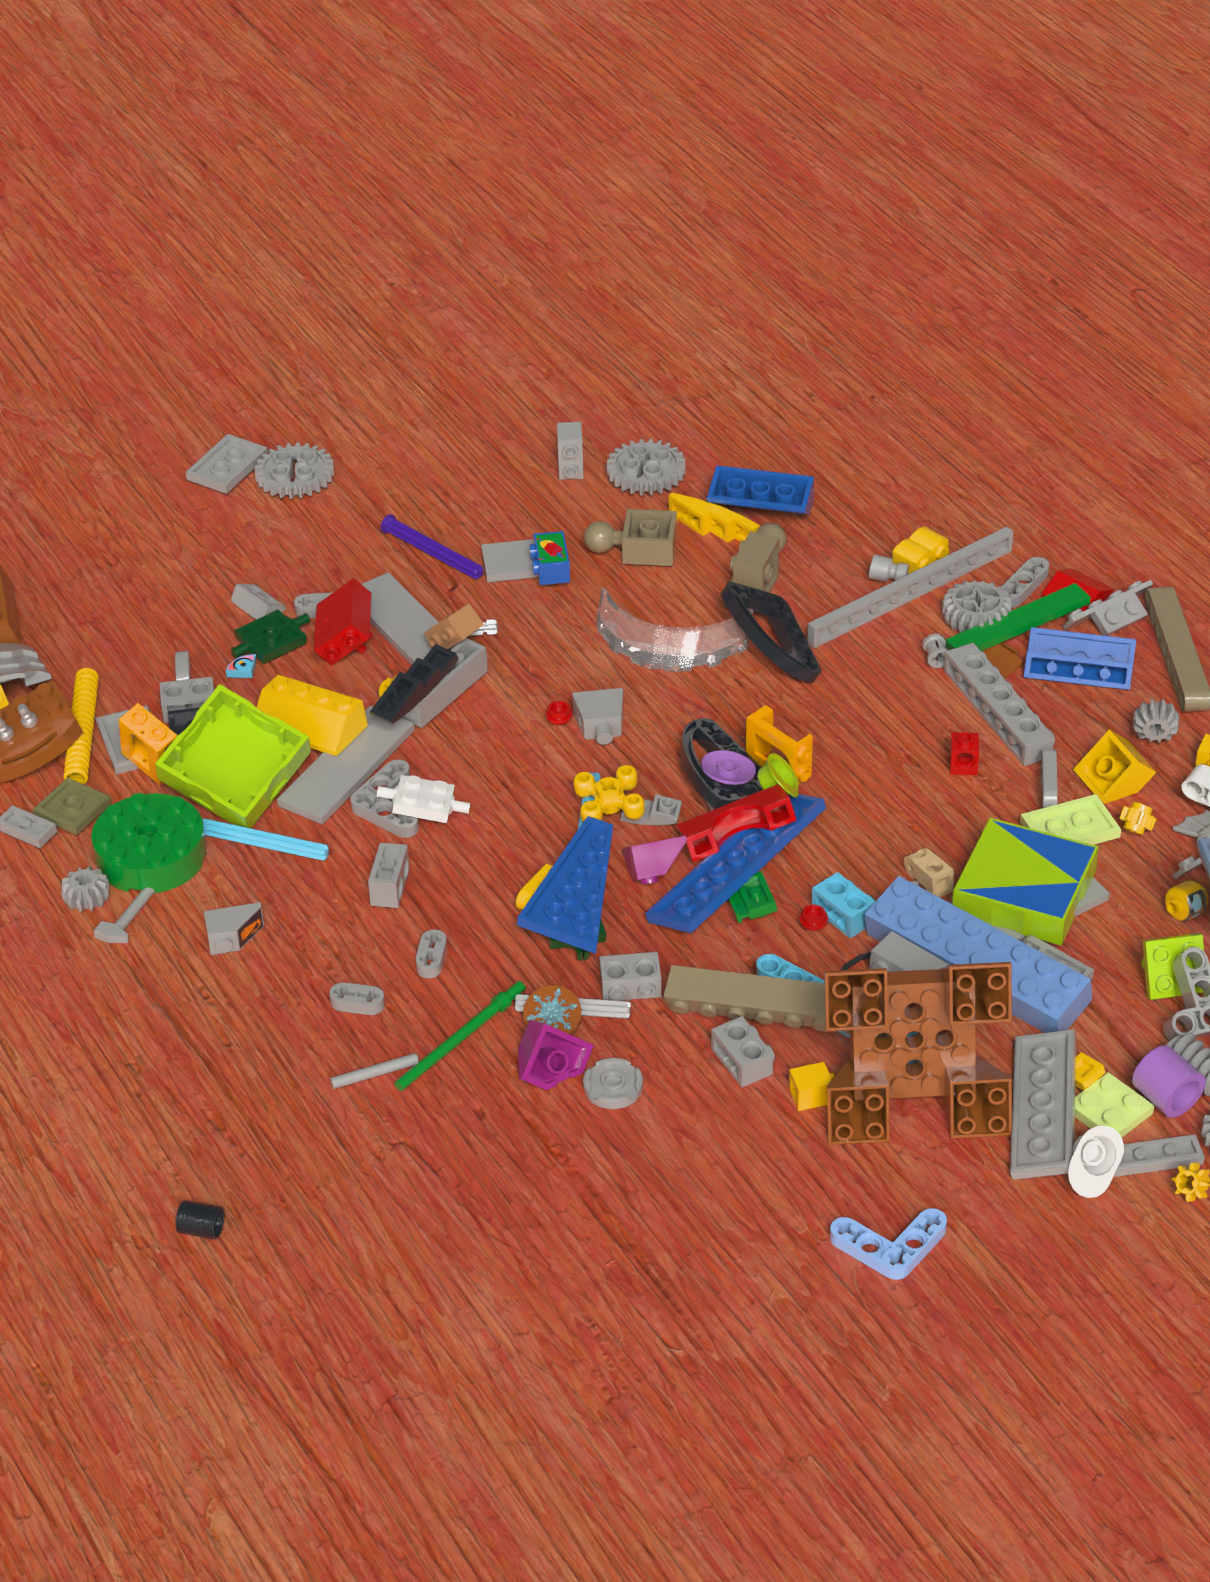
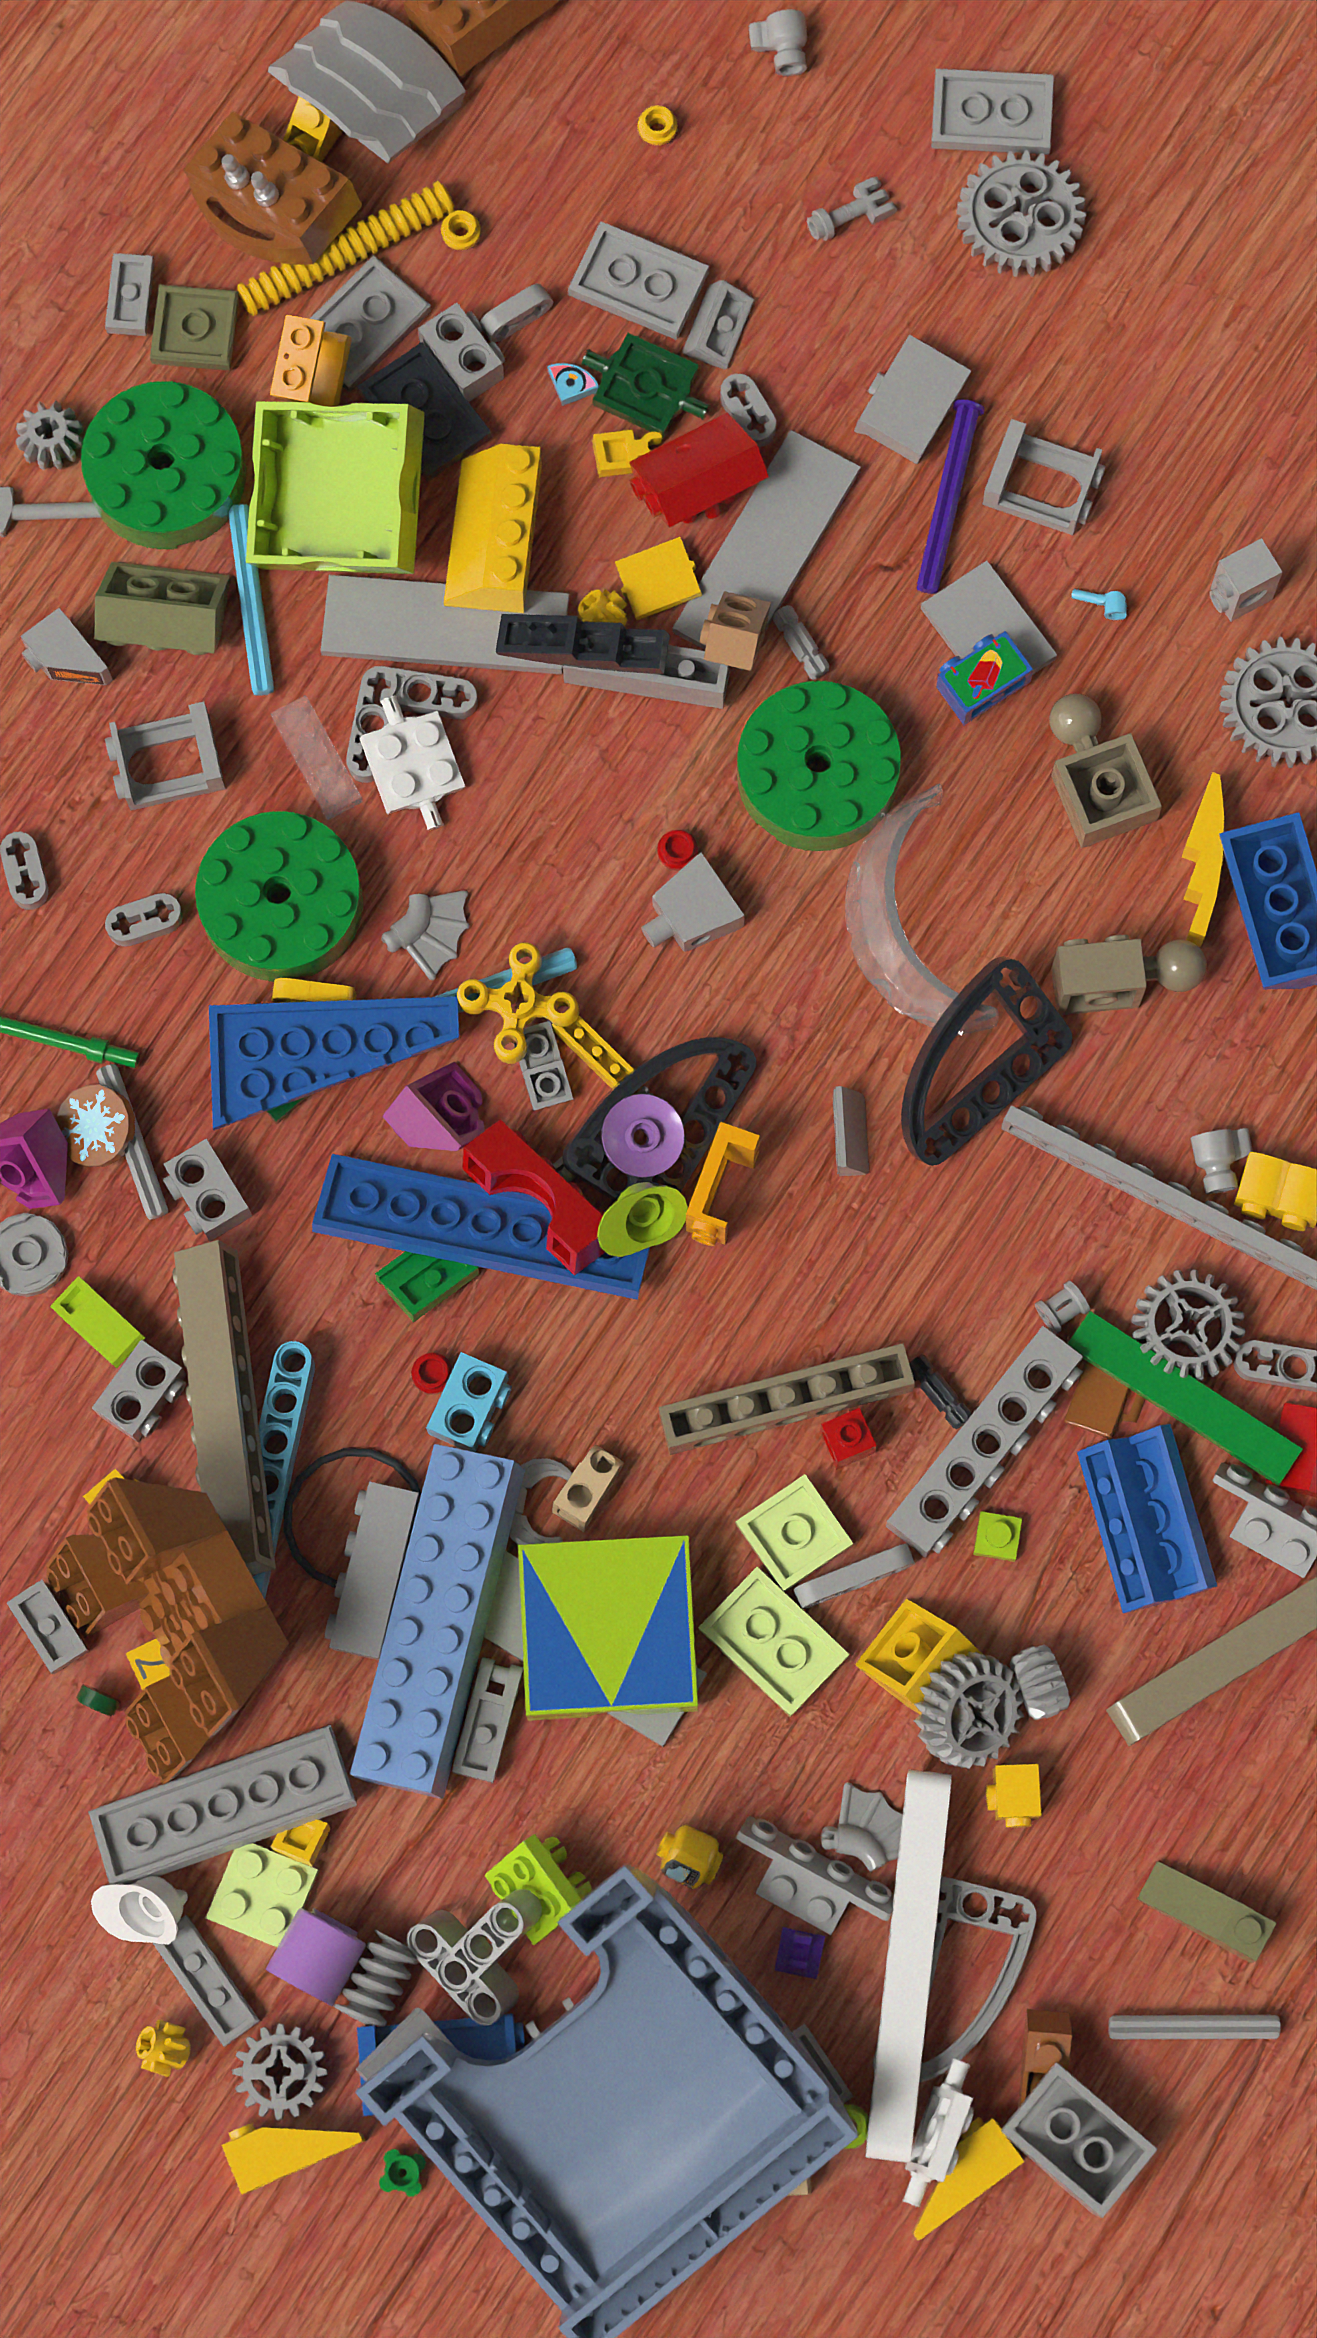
camera: 65 degrees right, 35 degrees up
(111, 678) = (457, 220): none -> yellow plate
(114, 519) = (785, 33): none -> light grey piece
(120, 584) = (655, 115): none -> yellow plate
(206, 619) = (638, 280): none -> light grey plate
(236, 540) = (822, 223): none -> light grey hinge
(240, 874) = (161, 608): none -> olive slope
(302, 659) = (617, 449): none -> yellow plate
(341, 885) = (128, 741): none -> light grey panel
(365, 542) = (912, 399): none -> light grey container
(365, 844) = (316, 757): none -> clear plate
(387, 664) = (658, 578): none -> yellow piece
(389, 875) = (236, 796): light grey brick -> none
(432, 515) = (1078, 465): none -> light grey panel
(464, 881) = (272, 856): none -> green brick
(531, 831) = (429, 930): none -> light grey arm
(541, 509) = (1114, 602): none -> medium azure hand
(552, 638) = (825, 725): none -> green brick
(662, 784) = (594, 1051): none -> yellow piece
(692, 1051) = (97, 1322): none -> lime slope
(778, 700) = (850, 1132): none -> light grey slope
(873, 1150) = (47, 1626): none -> light grey plate
(925, 768) = (786, 1399): none -> dark tan brick
(927, 1110) = (148, 1663): none -> yellow tile
(937, 1139) = (98, 1700): none -> dark green tile
(956, 715) = (939, 1392): none -> black axle
(1007, 795) = (794, 1533): none -> yellowish green plate
(1058, 720) = (997, 1536): none -> lime plate
(1137, 818) = (824, 1730): yellow gear -> none
(1159, 748) = (969, 1710): none -> light grey gear

